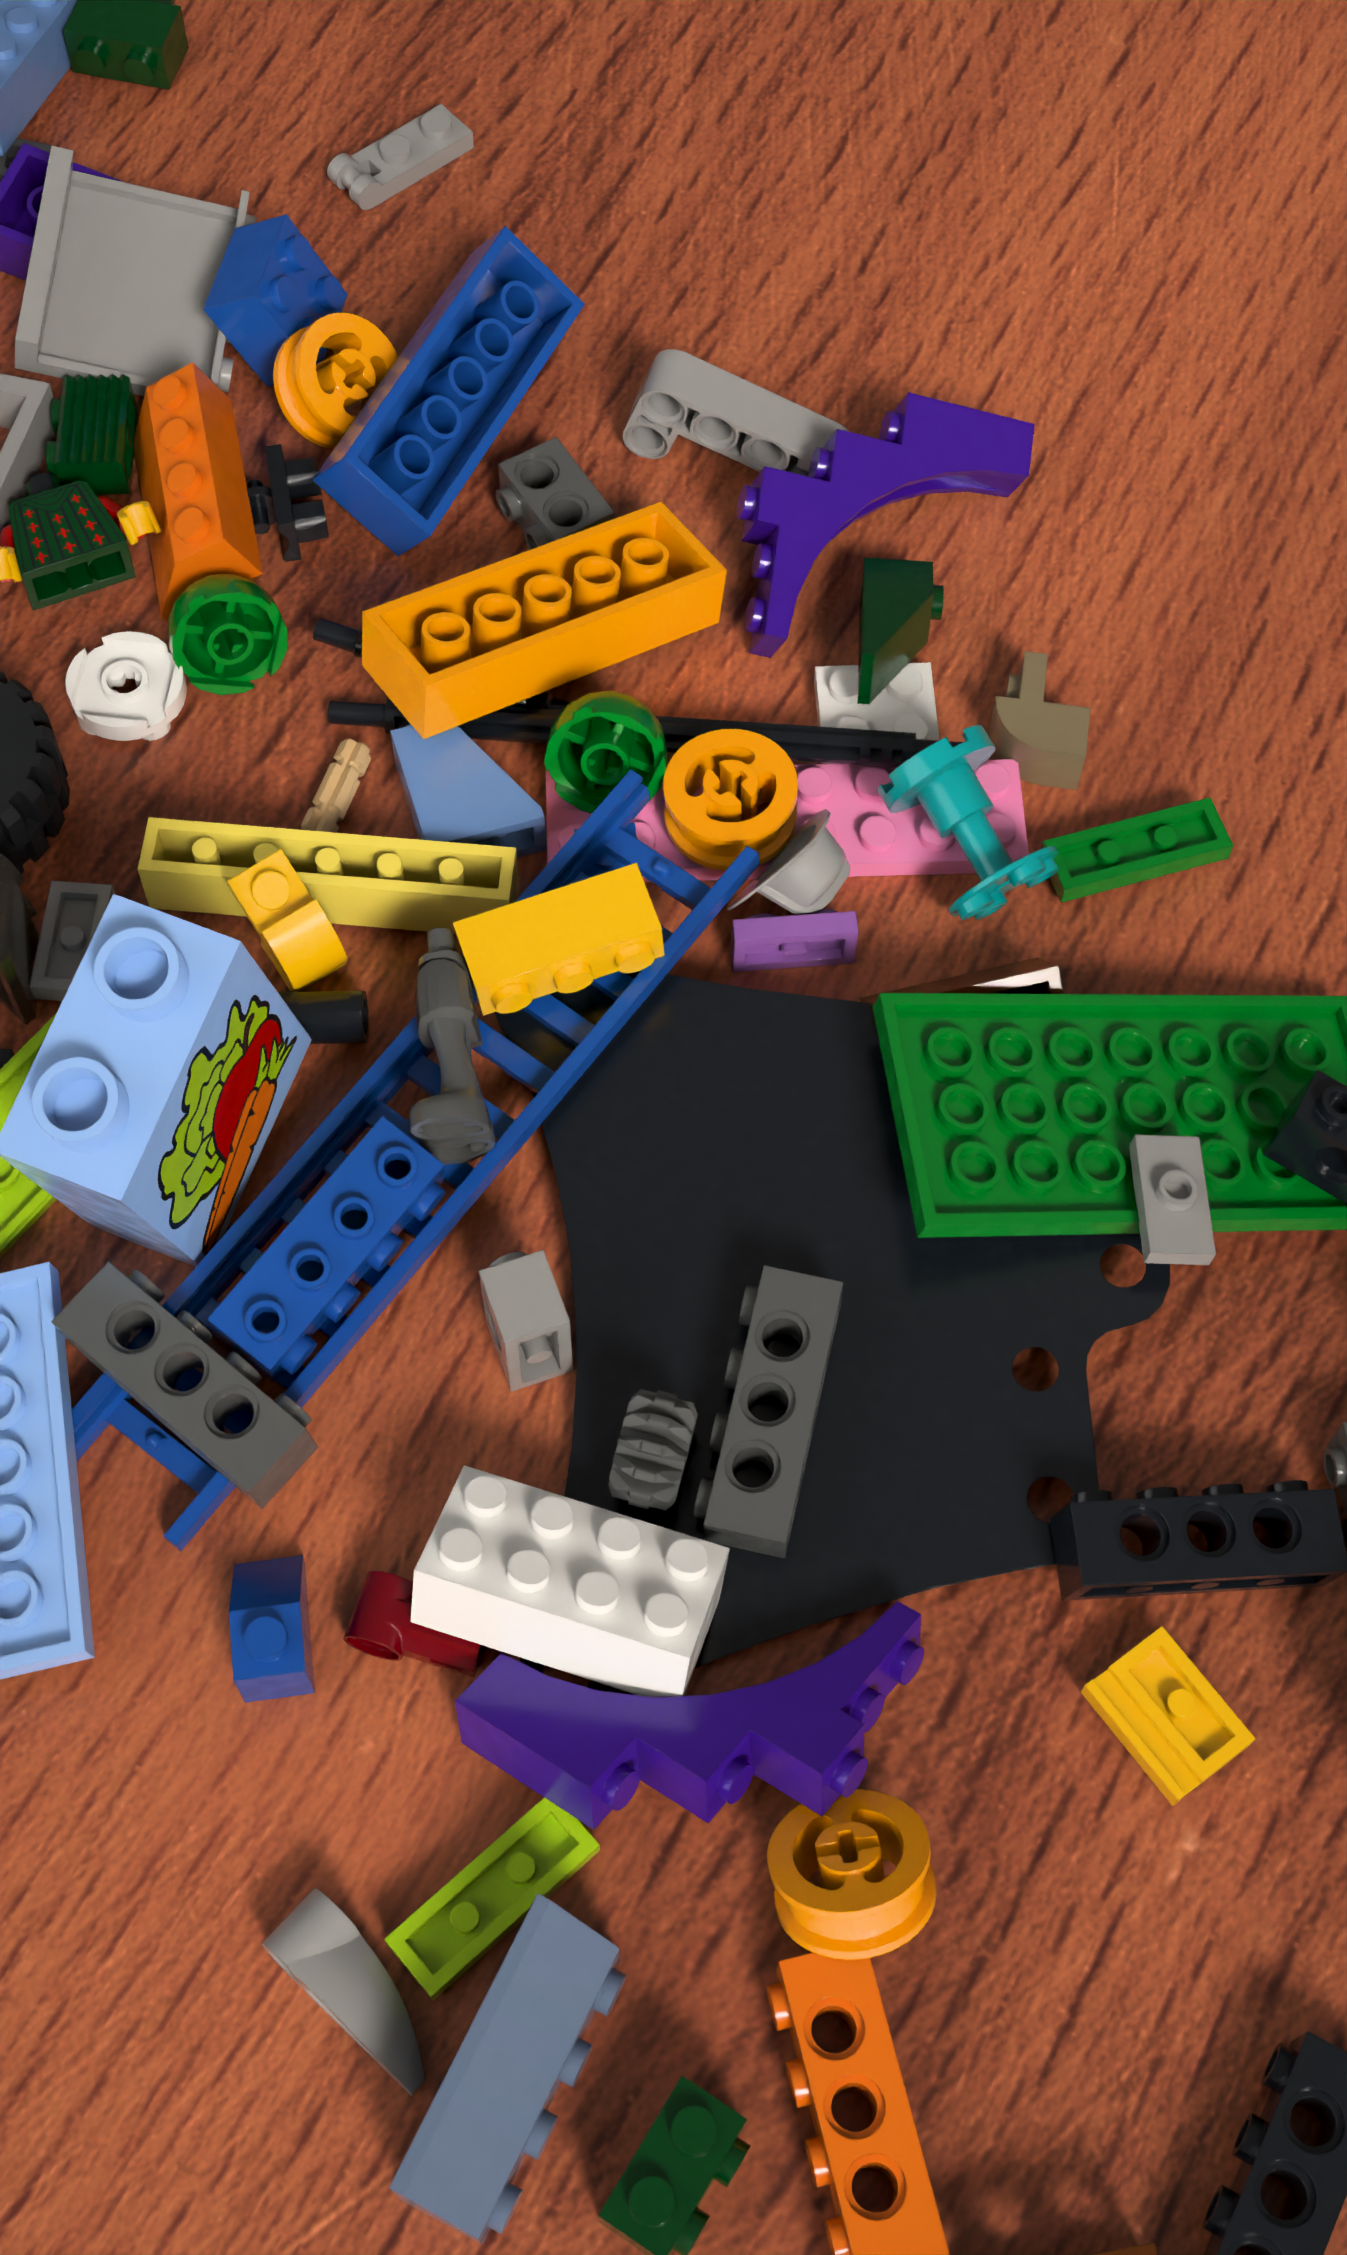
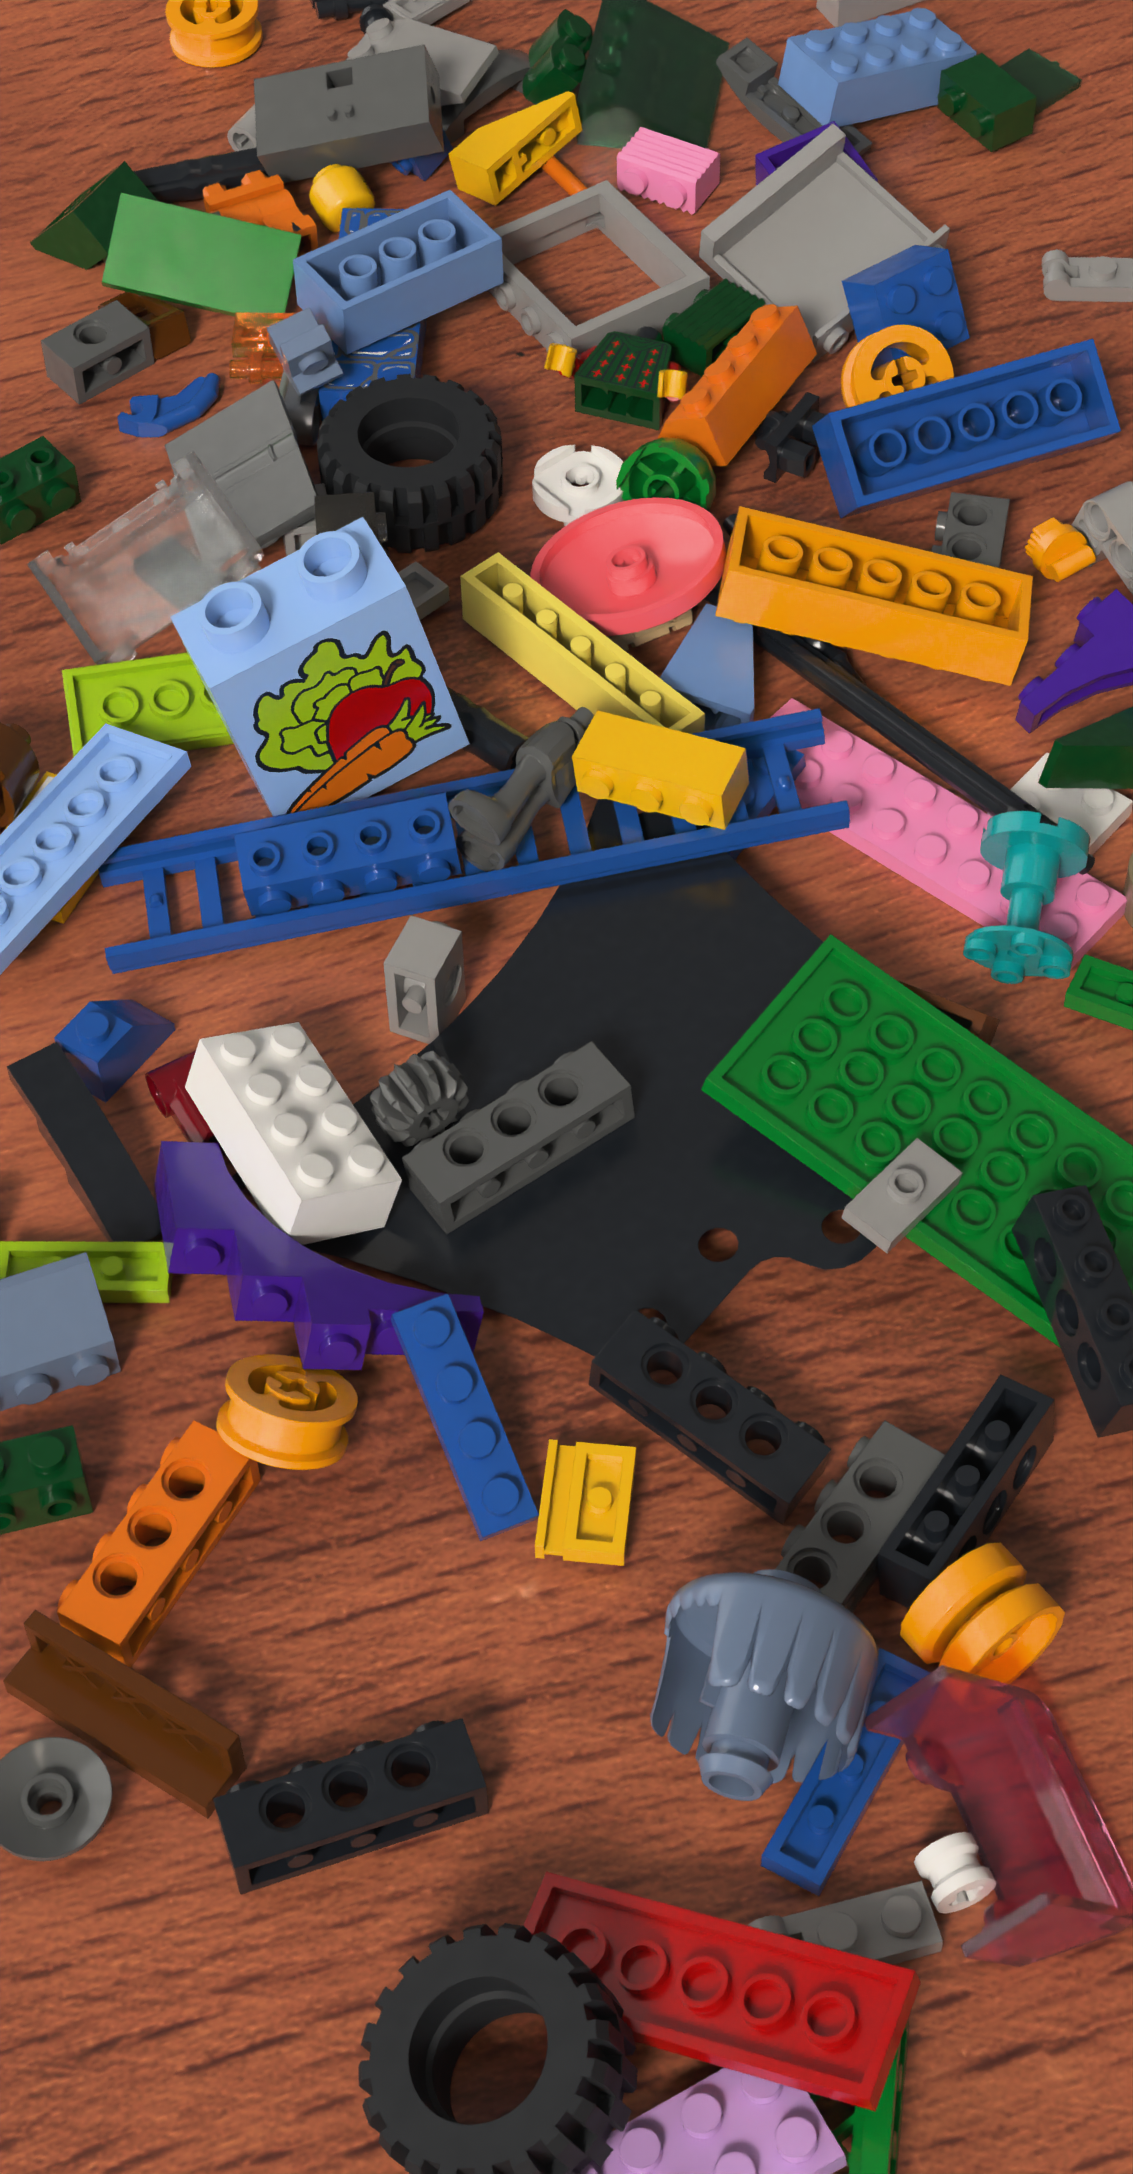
camera: 45 degrees right, 10 degrees down
(254, 1460) = (193, 869): dark grey brick -> none
(275, 736) = (633, 563): none -> coral dish
(288, 922) = (518, 669): yellow brick -> none
(368, 1764) = (86, 1146): none -> black slope
(599, 743) = (835, 683): green cylinder -> none
(636, 459) = (1058, 550): none -> light orange piece
(750, 773) = (912, 783): light orange wheel -> none
(794, 940) = (843, 899): medium lavender plate -> none
(804, 872) = (878, 853): light grey piece -> none
(1003, 1732) = (464, 1417): none -> blue plate

